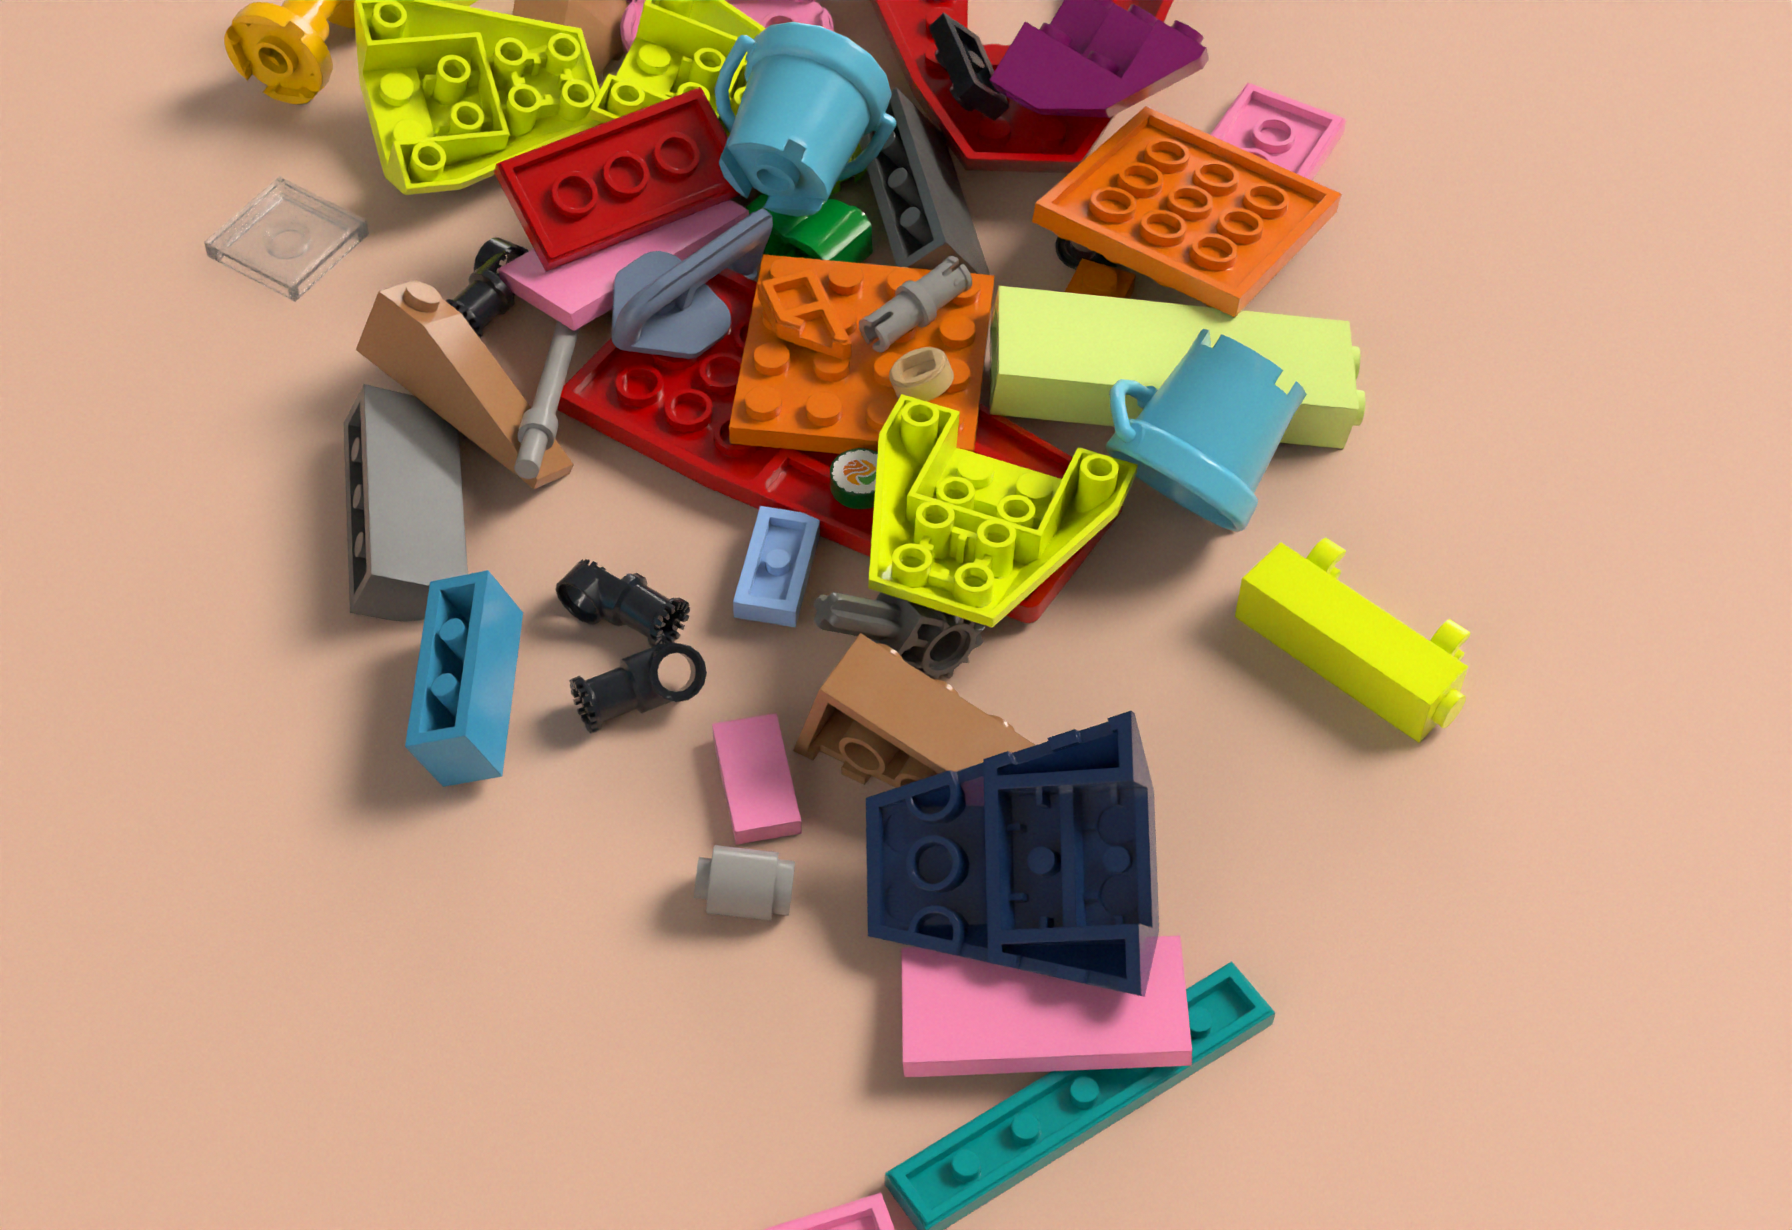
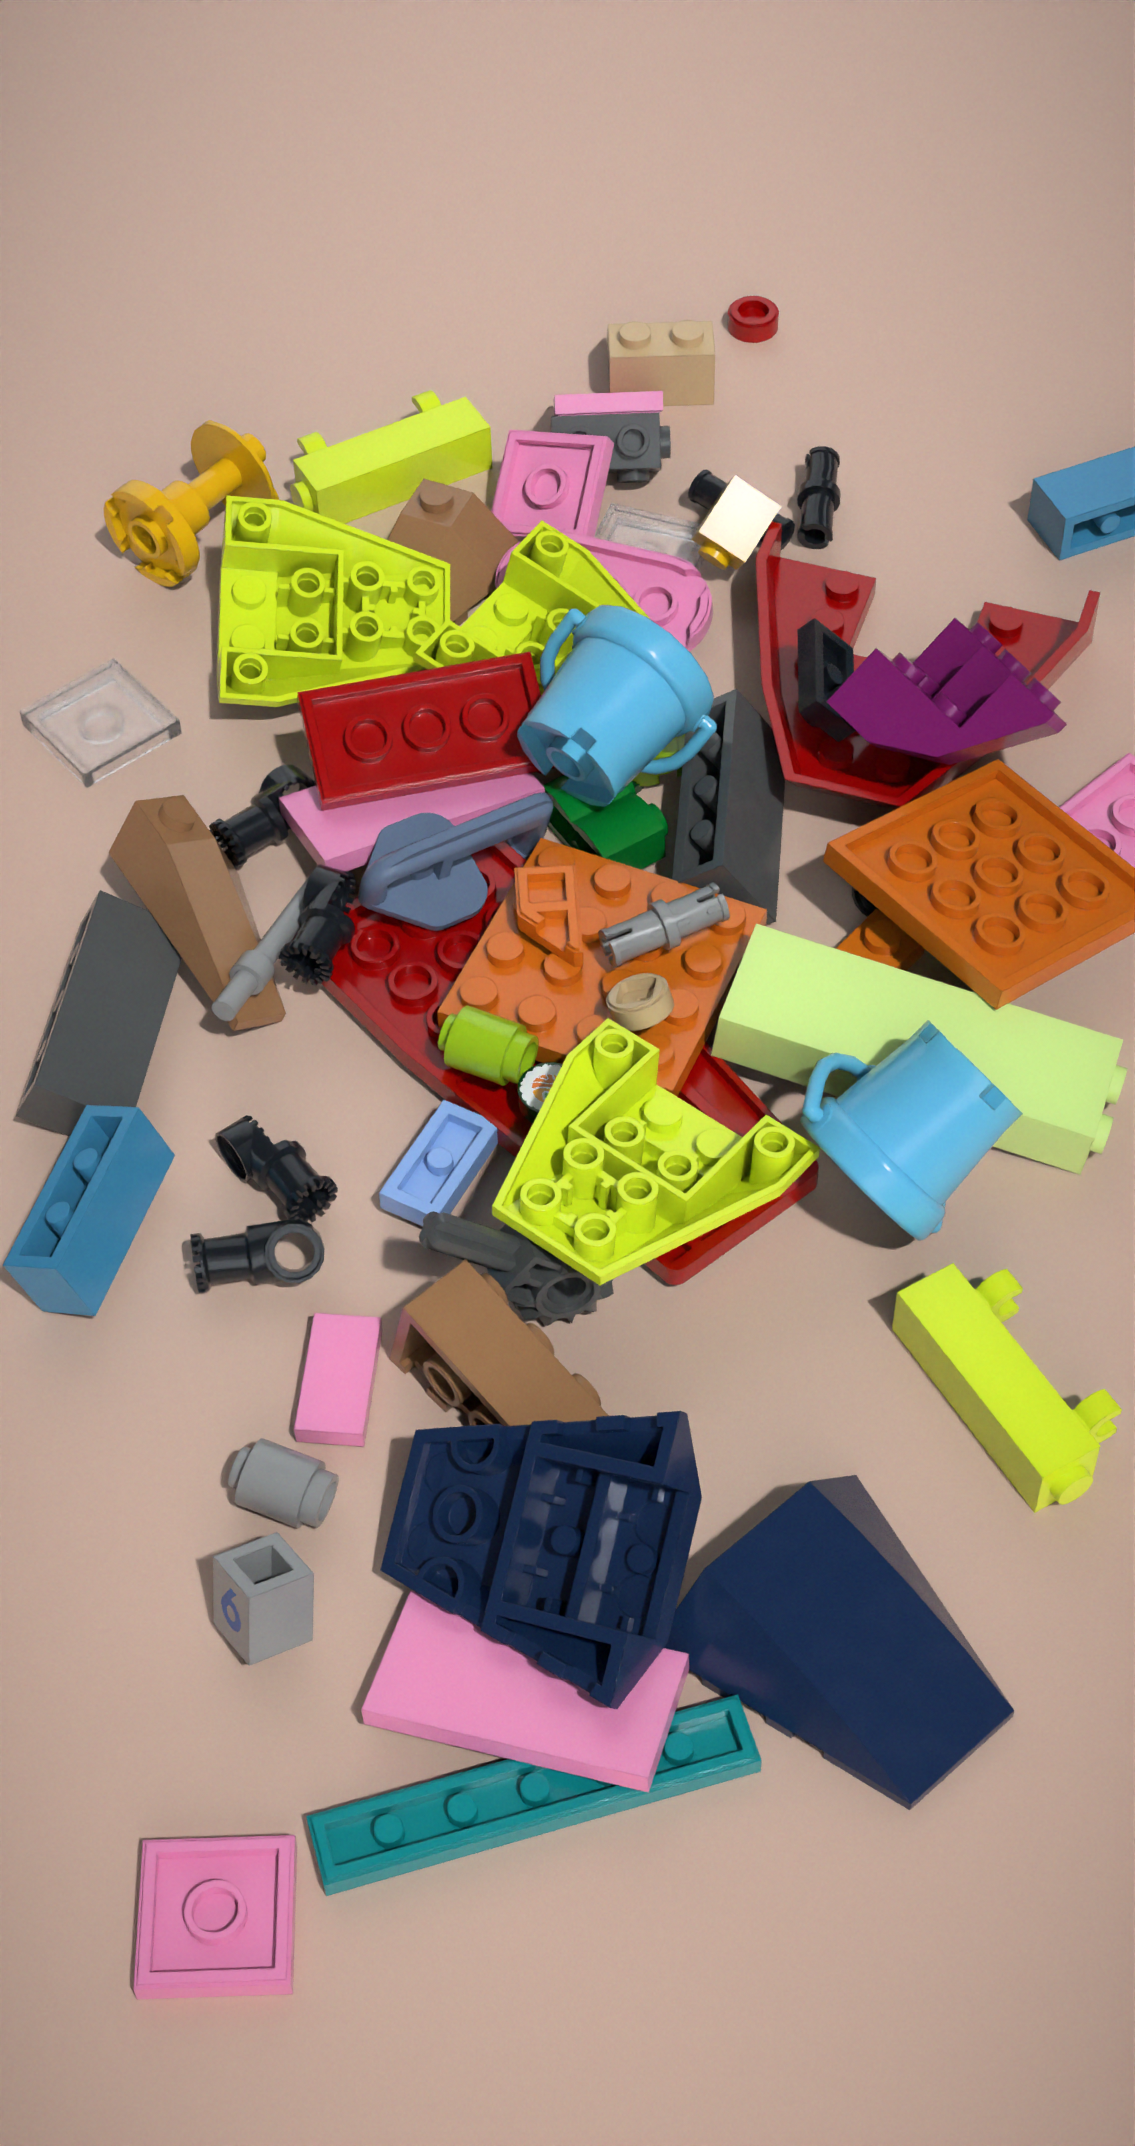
camera: 20 degrees right, 0 degrees up
(591, 375) = (323, 925): none -> black connector
(774, 987) = (263, 1598): none -> light grey brick
(789, 446) = (487, 1045): none -> lime brick
(1305, 896) = (841, 1643): none -> dark blue wedge

